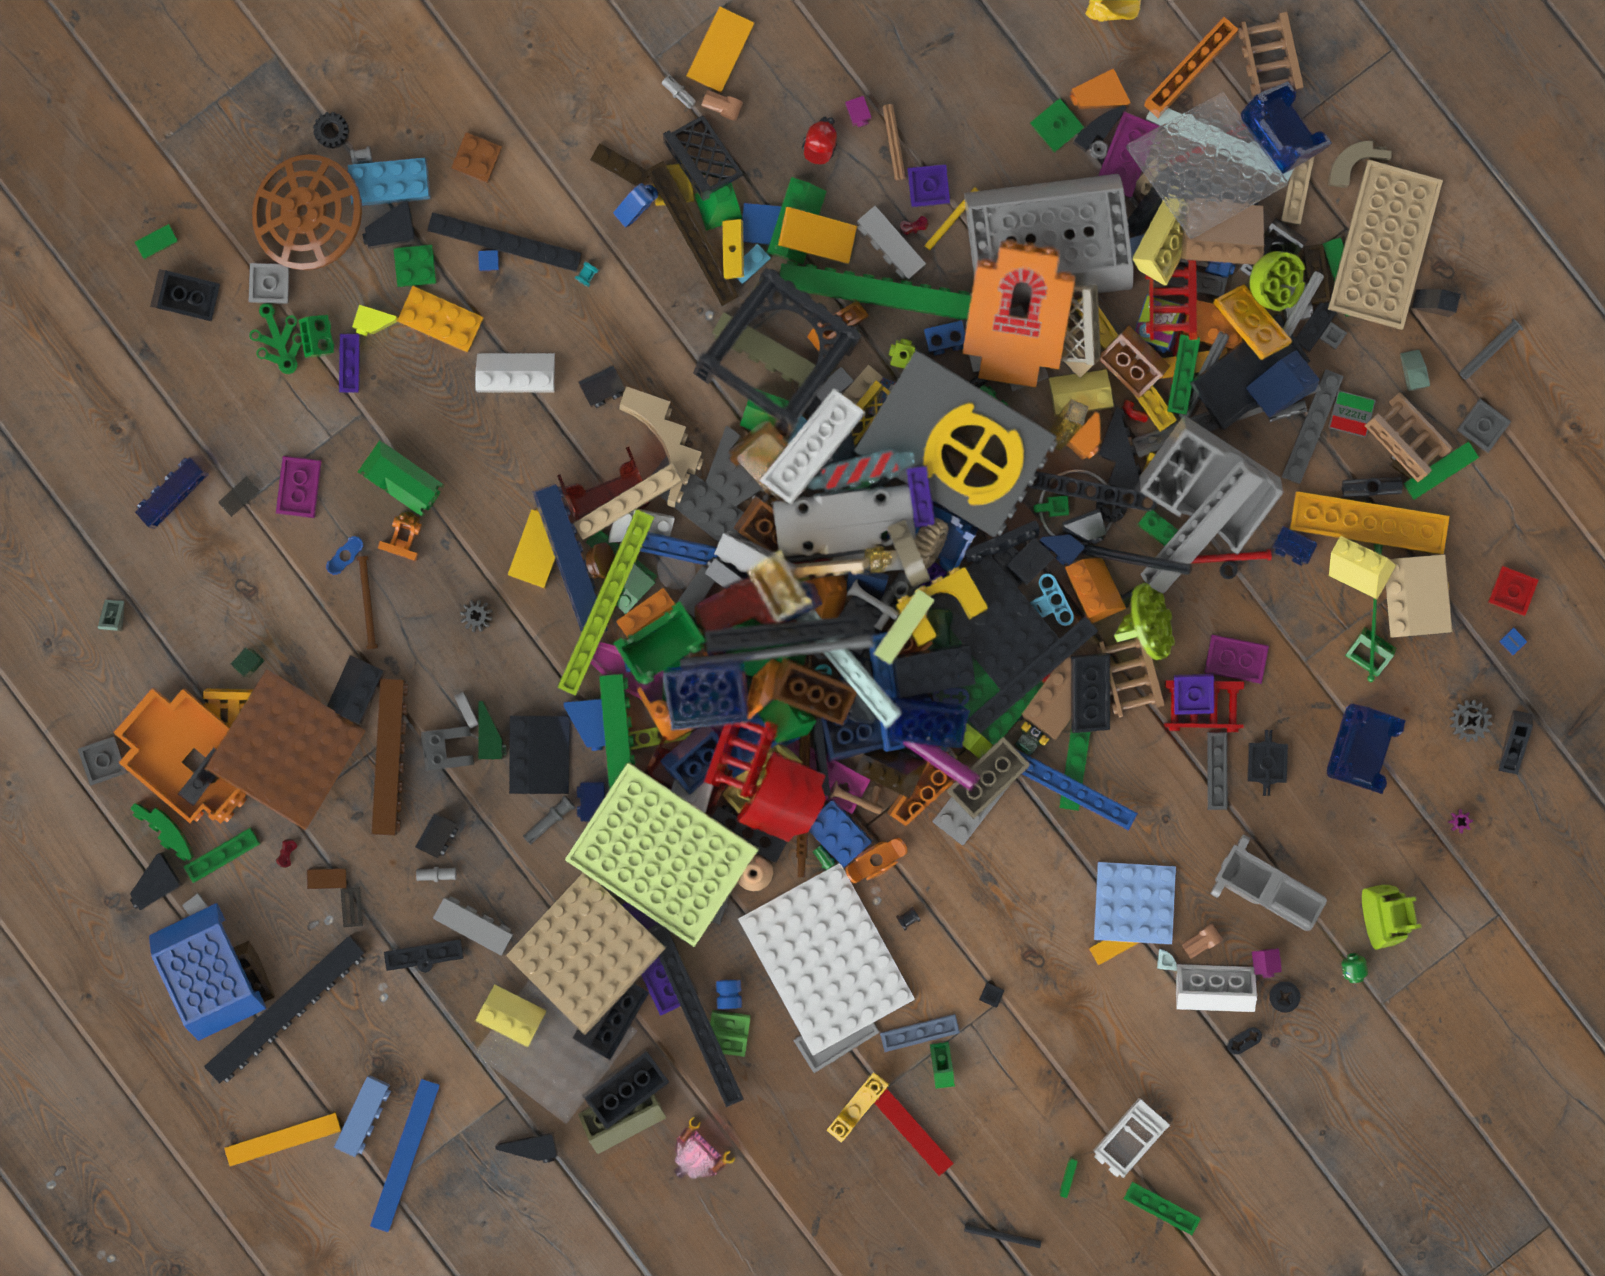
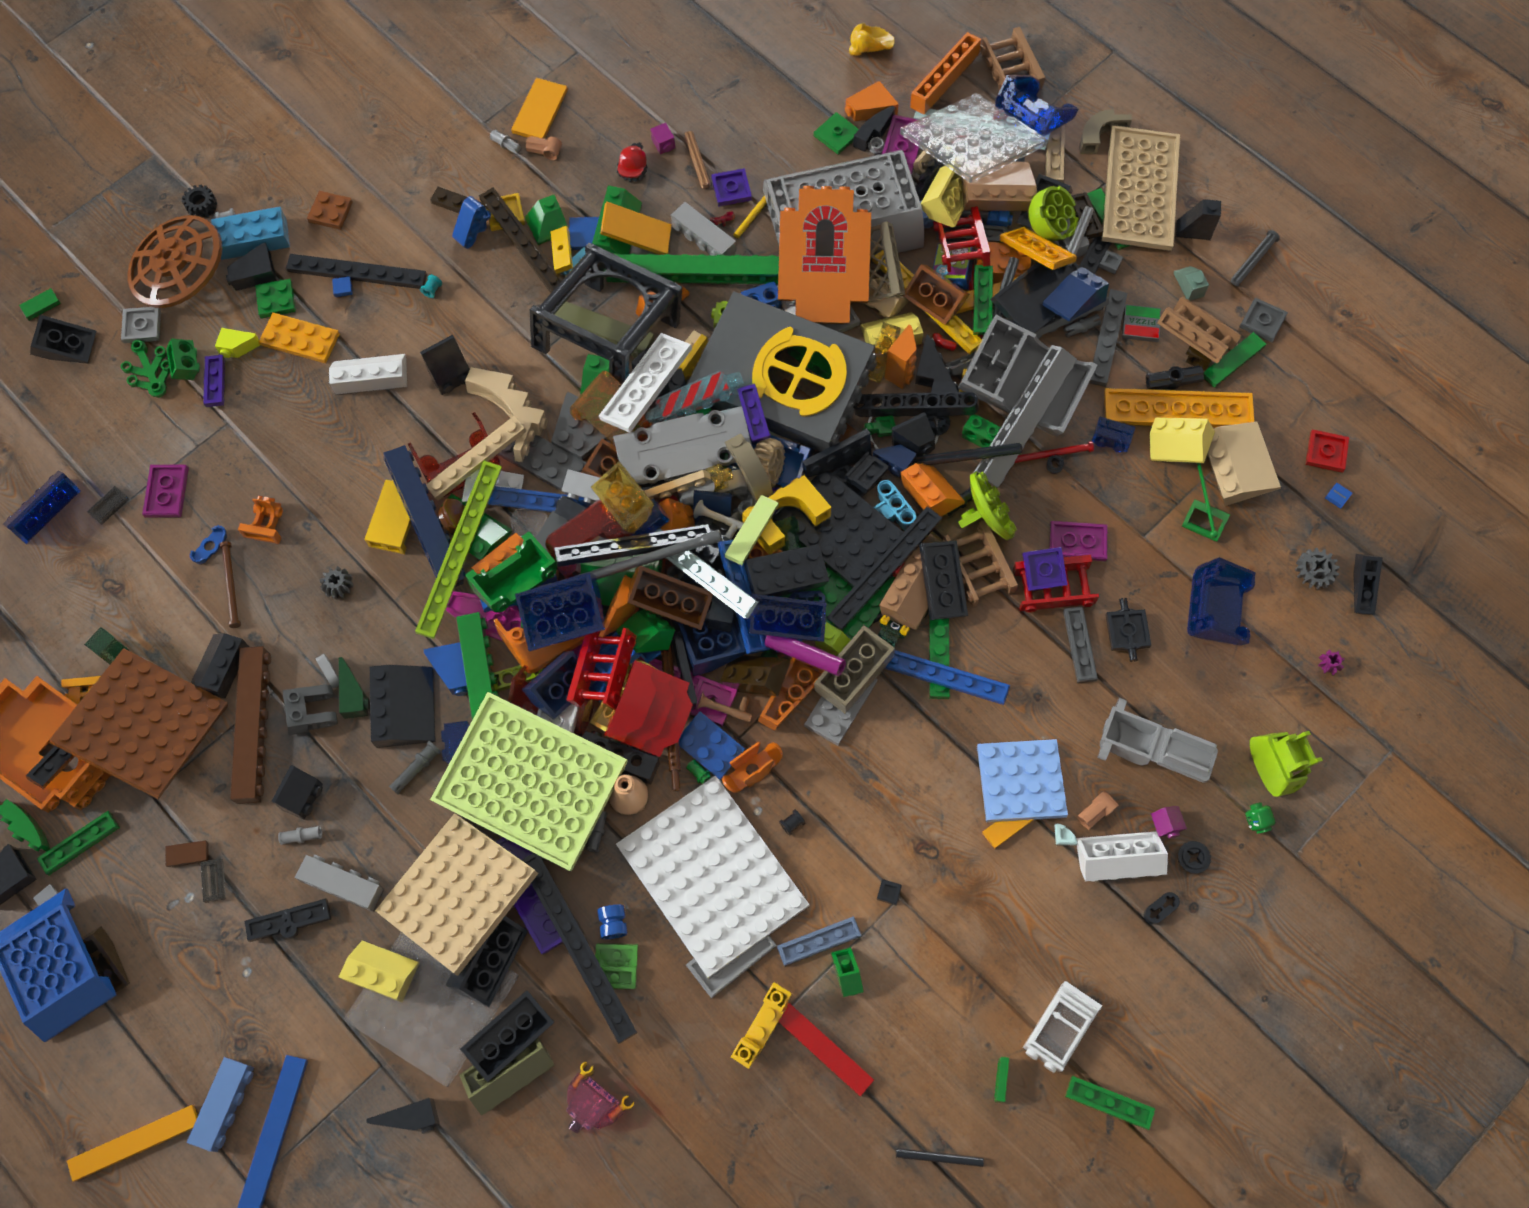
camera: 10 degrees left, 20 degrees down
(288, 846) = (146, 825): dark red piece -> none
(288, 1006) = (136, 997): black brick -> none
(401, 477) = (261, 467): green brick -> none
(687, 163) = (517, 188): black fence -> none

